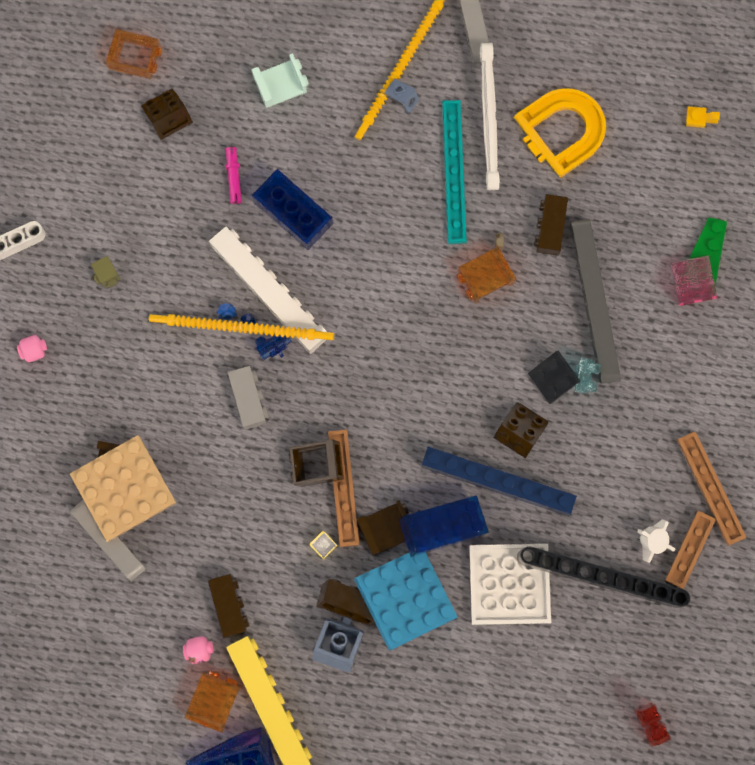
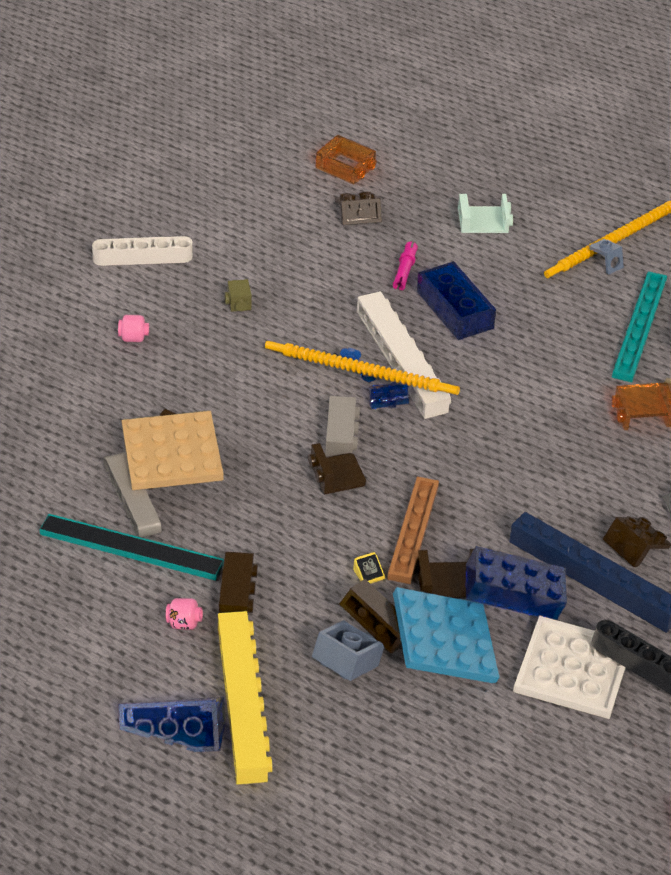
camera: 15 degrees right, 35 degrees down
(129, 592) = (132, 547): none -> black tile
(212, 701) = (176, 662): clear orange panel -> none
(261, 448) = (335, 472): none -> dark brown bracket
(334, 463) = (393, 480): dark brown window -> none

